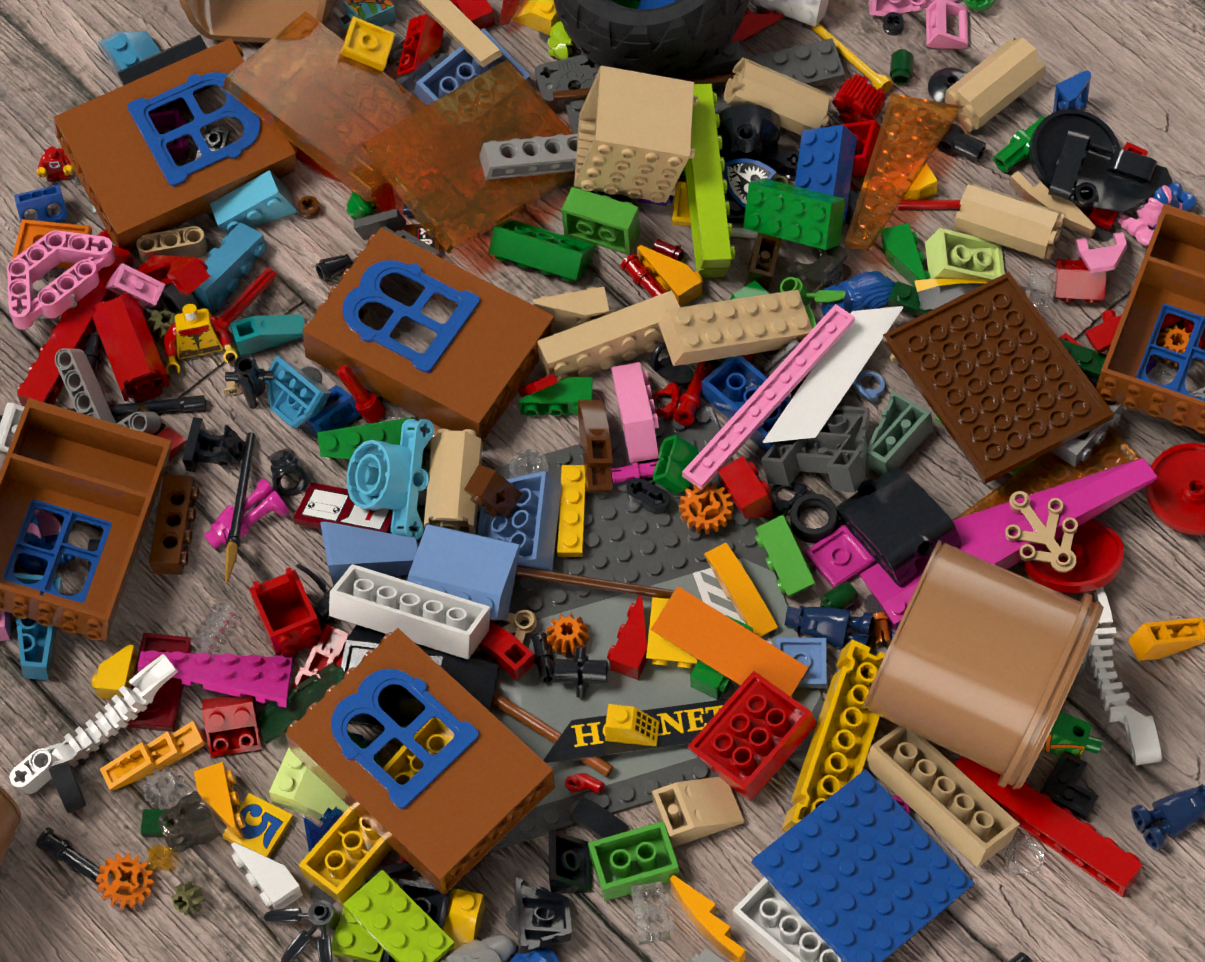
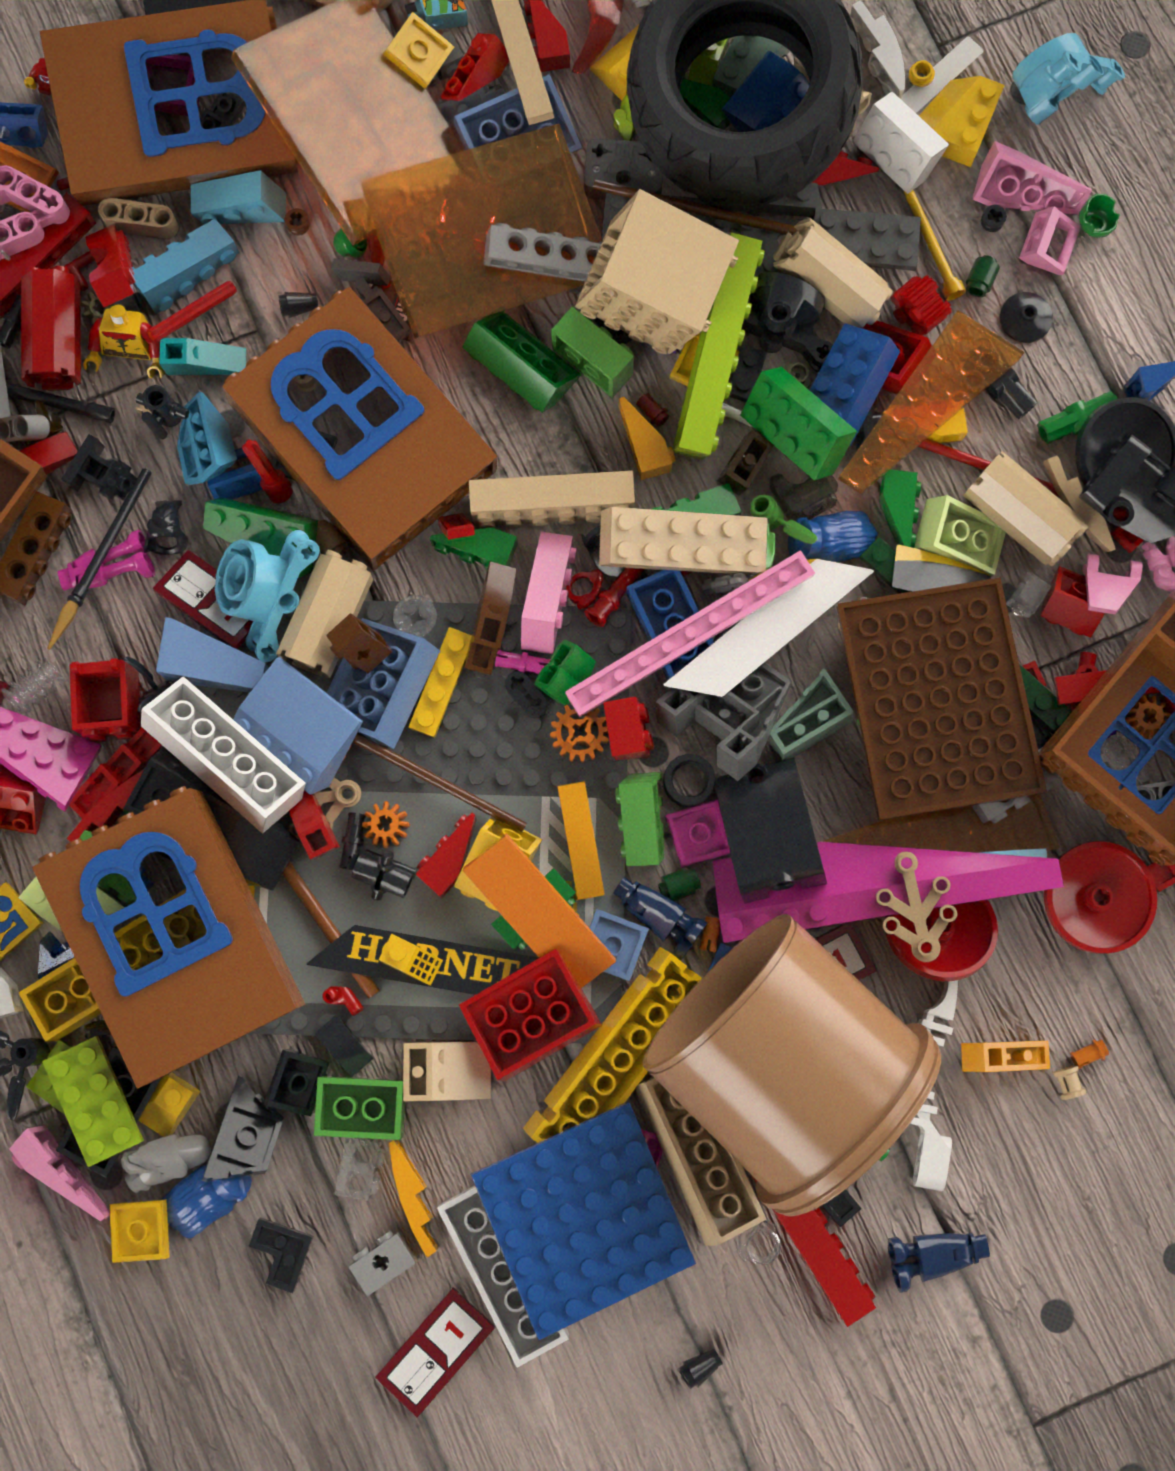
camera: 15 degrees right, 20 degrees up
(137, 284) = (73, 257): bright pink tile -> none
(277, 719) = (90, 807): clear green windscreen -> none
(574, 307) = (526, 453): tan slope -> none
(641, 275) = (614, 431): red pin -> none
(741, 172) = (763, 352): shield -> none
(783, 505) = (661, 754): black piece -> none
(869, 394) = (801, 657): medium blue piece -> none
(995, 83) = (1074, 335): tan brick -> none

